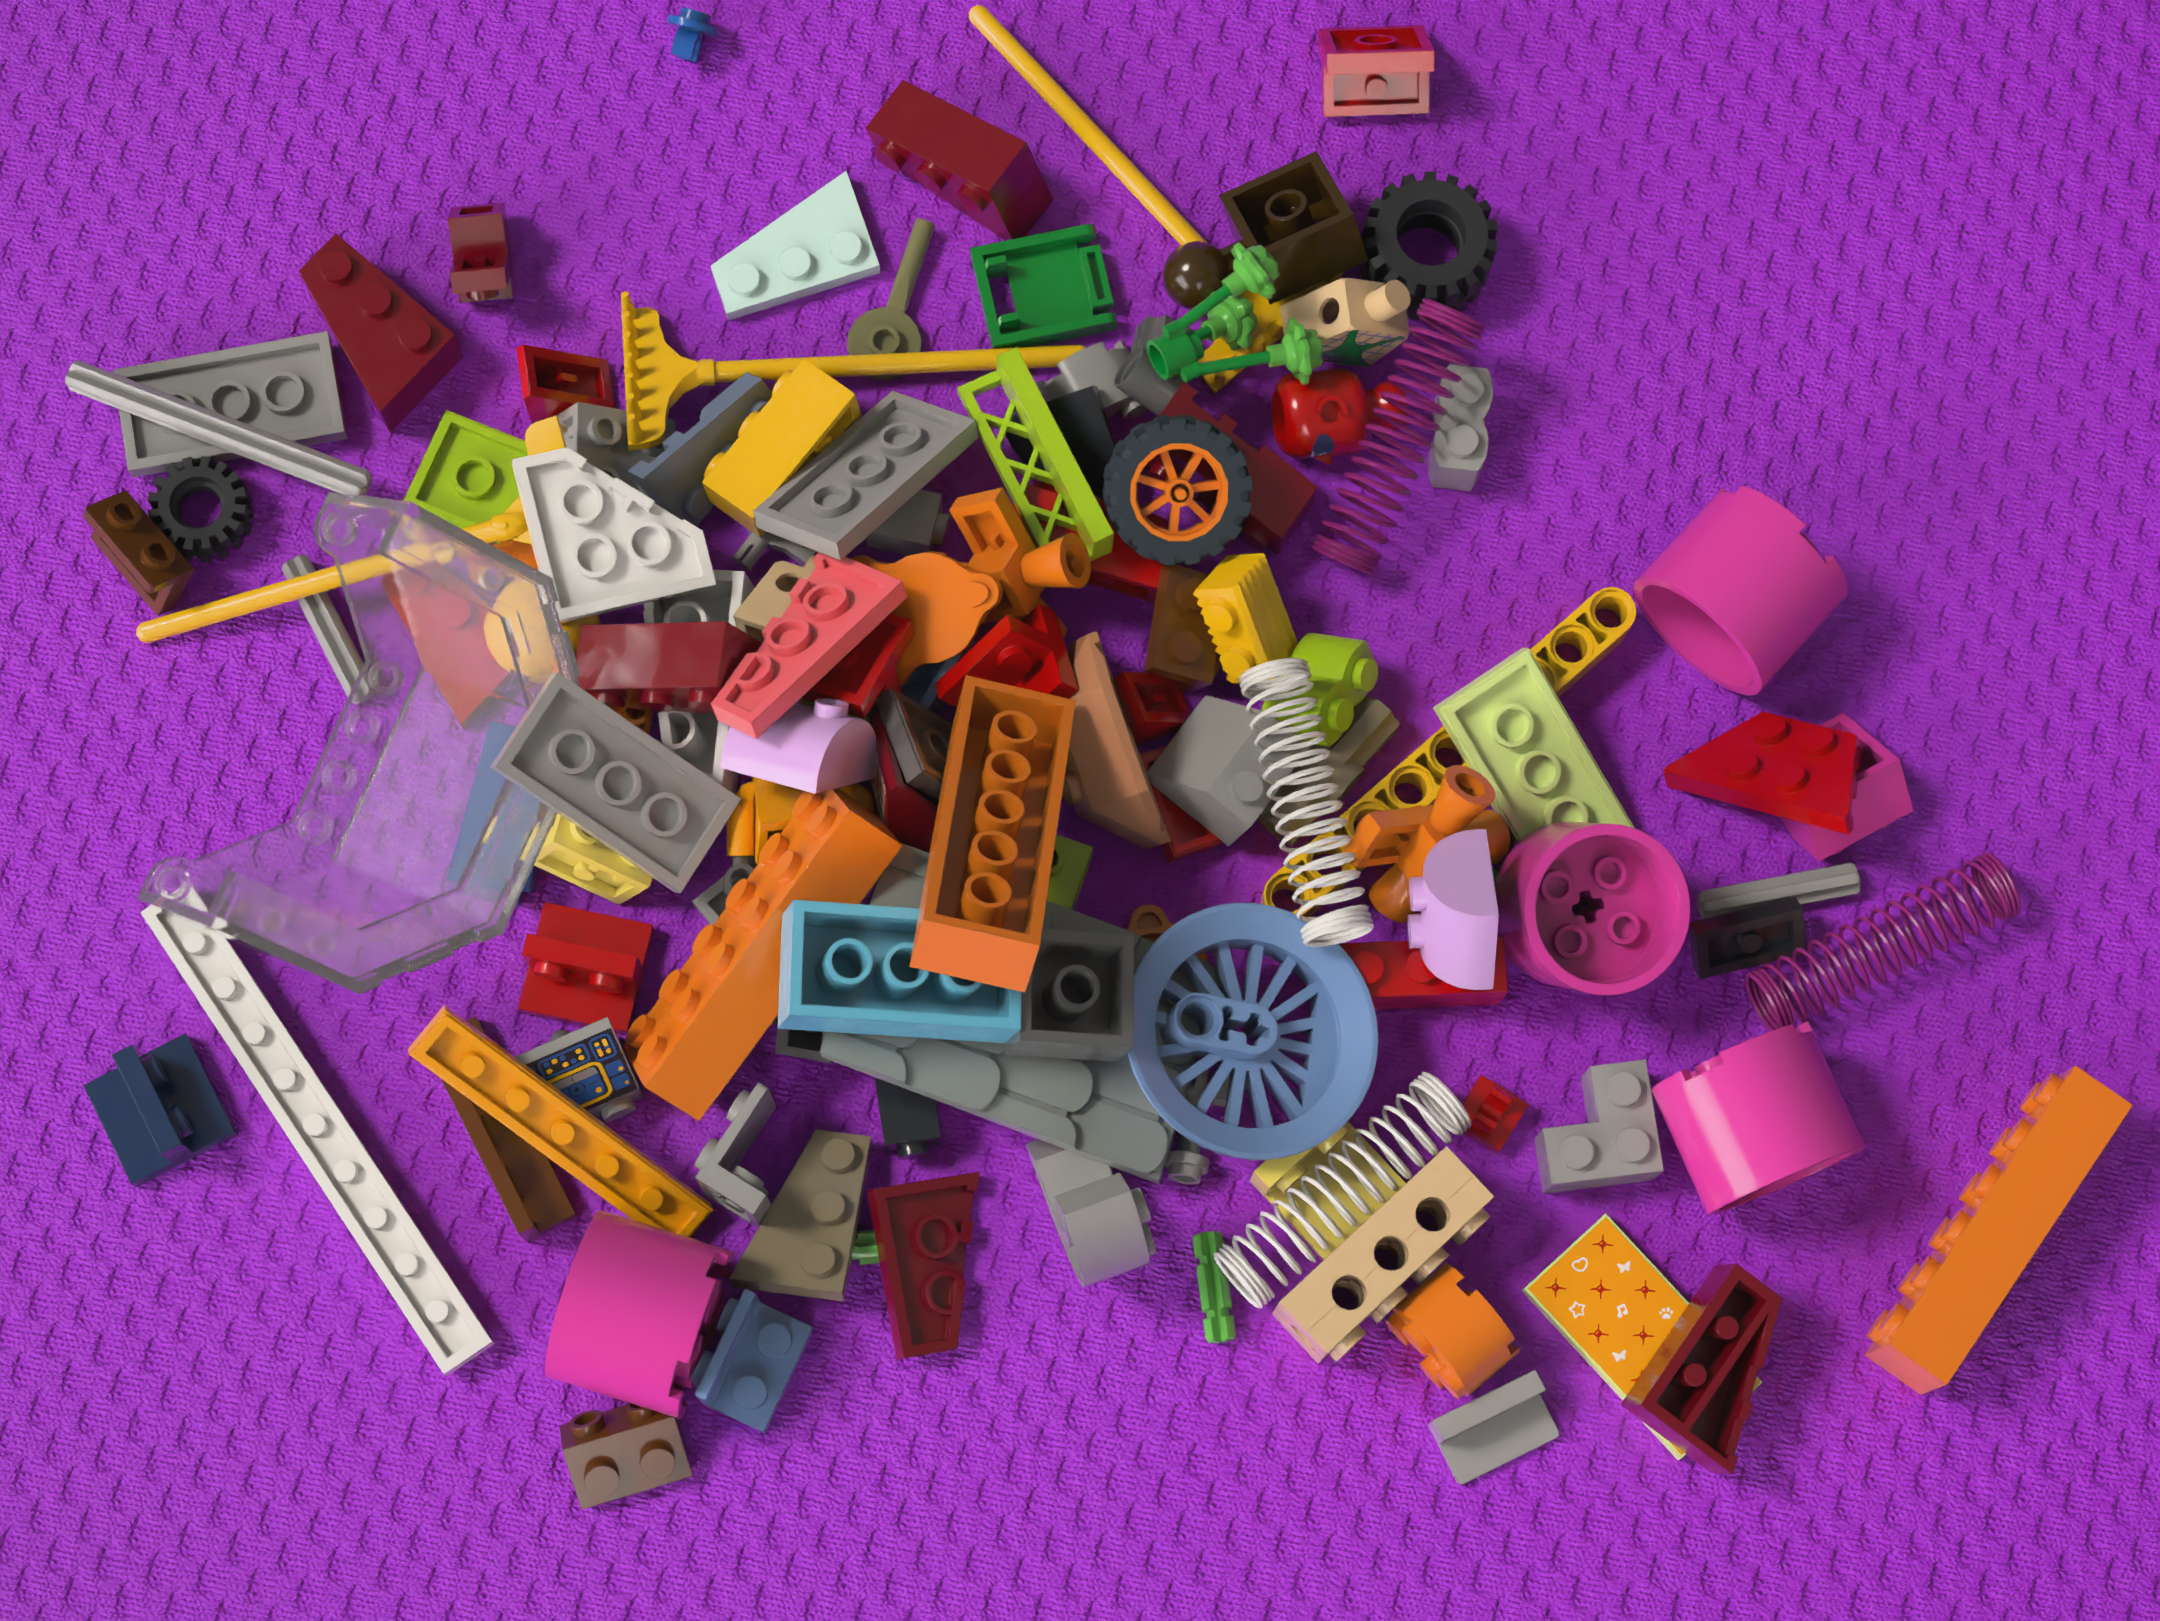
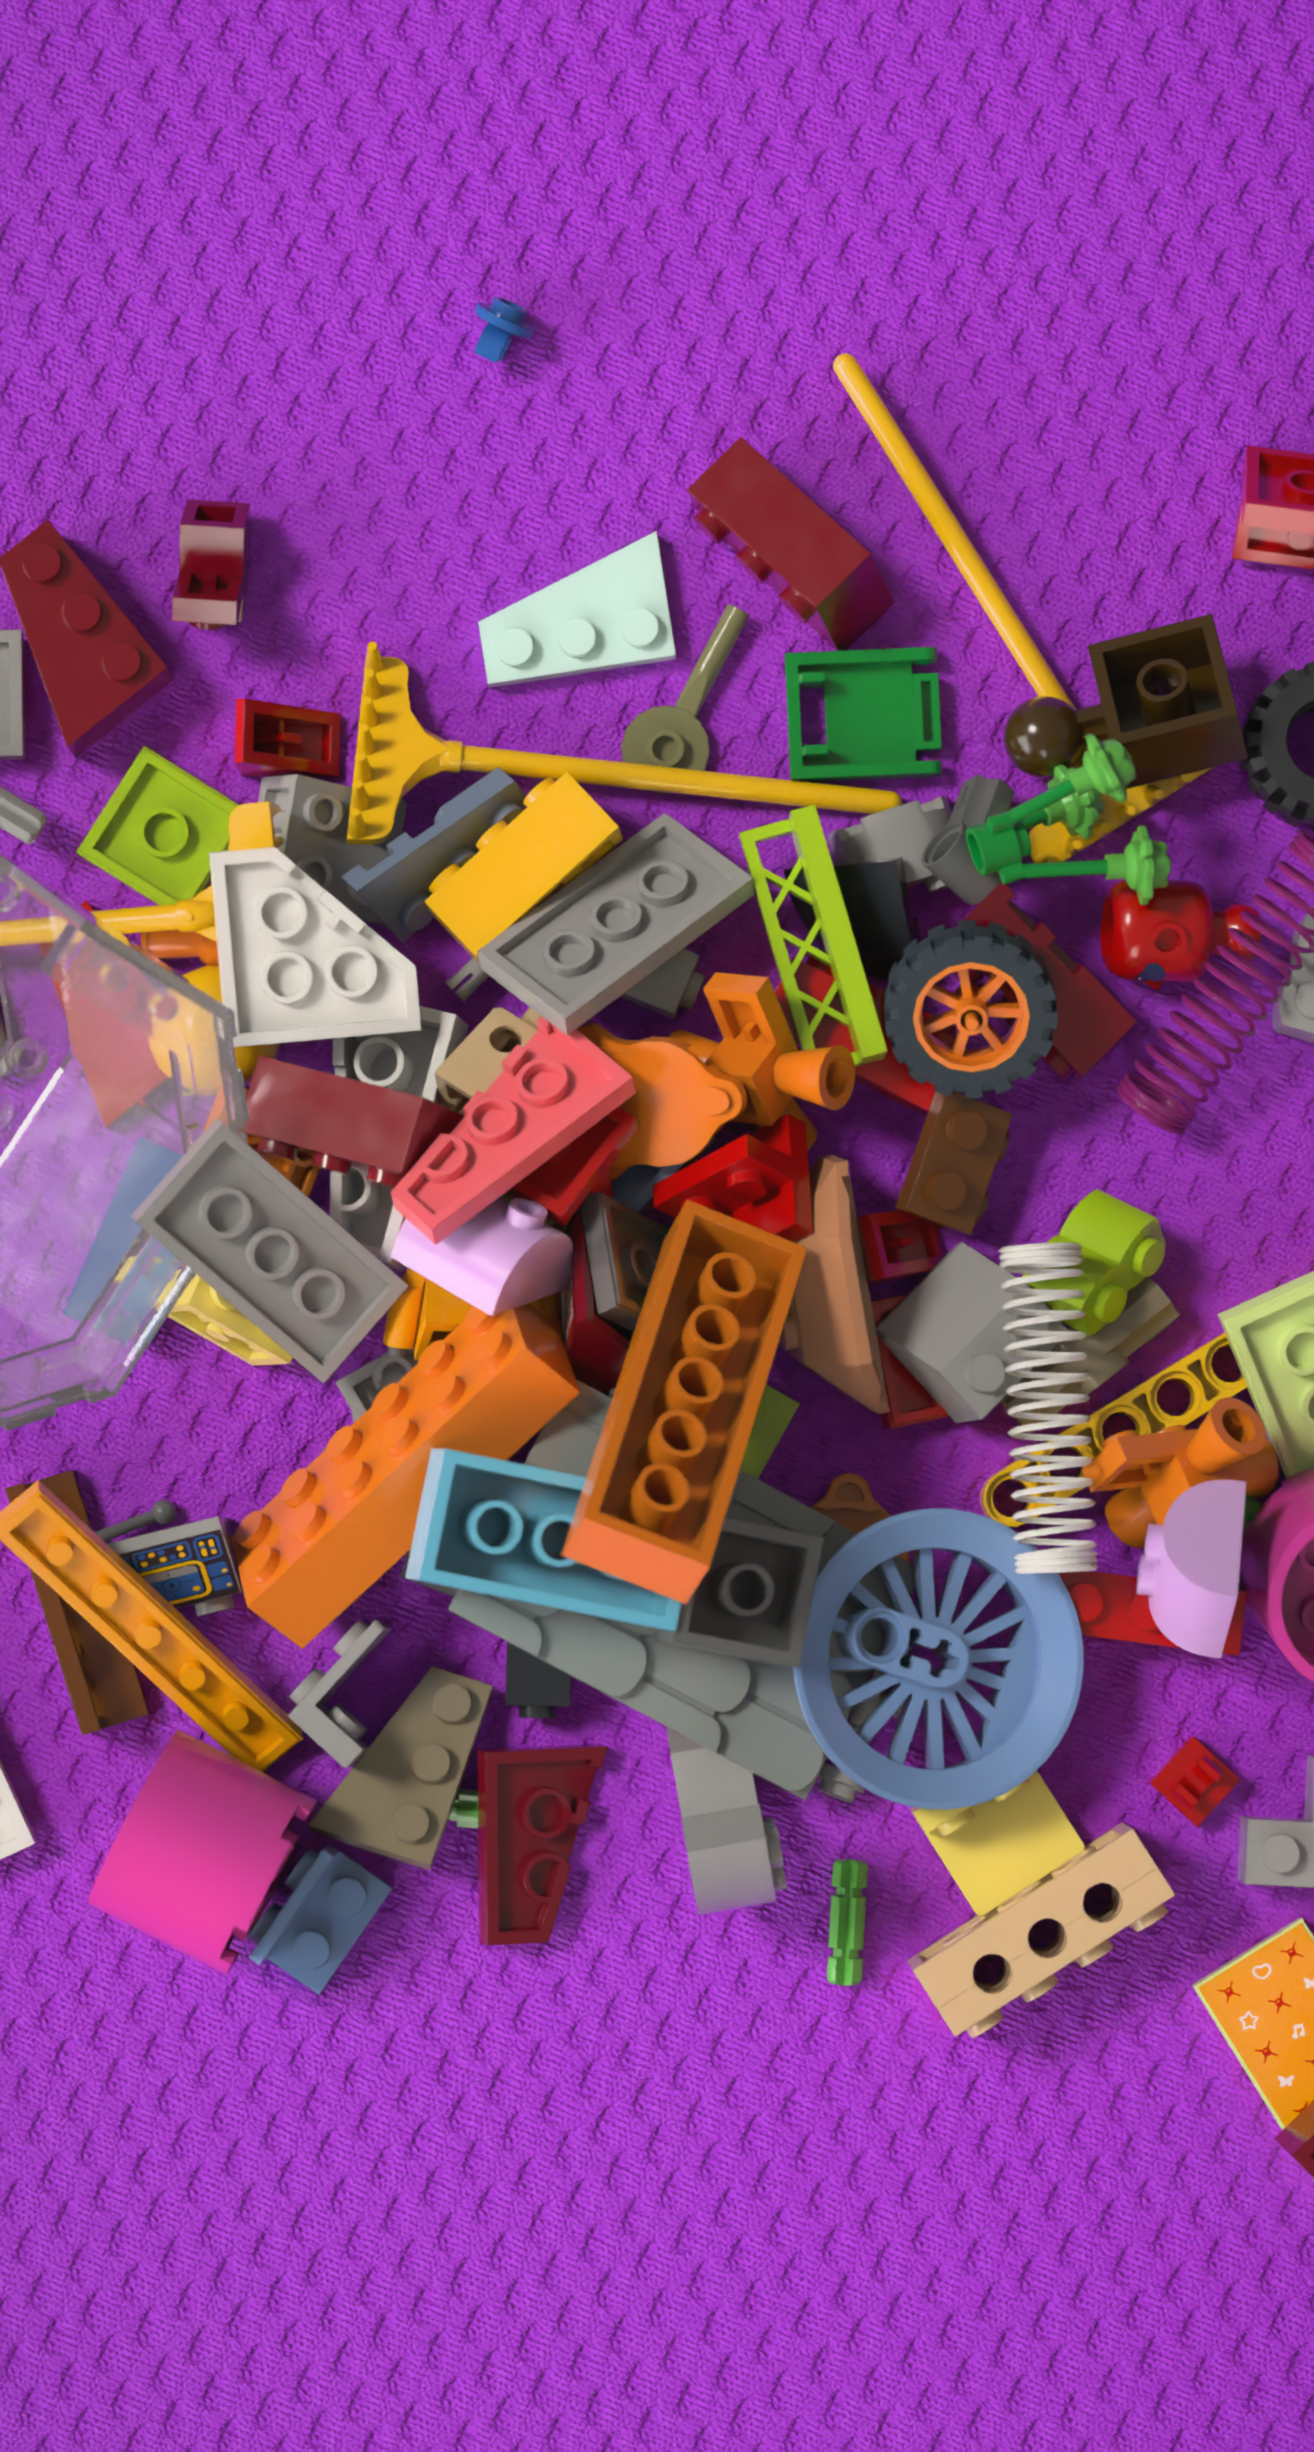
camera: 15 degrees right, 10 degrees up
(585, 967) = (203, 1434): red bracket -> none
(622, 1452) = (157, 1992): bracket -> none
(1245, 614) = (1024, 1167): yellow brick -> none
(1363, 318) = (1232, 833): tan torso -> none
(1444, 1112) = (897, 1945): white piece -> none
(1454, 1331) = (1102, 2029): orange brick -> none
(1494, 1428) = (1130, 2134): light grey panel -> none

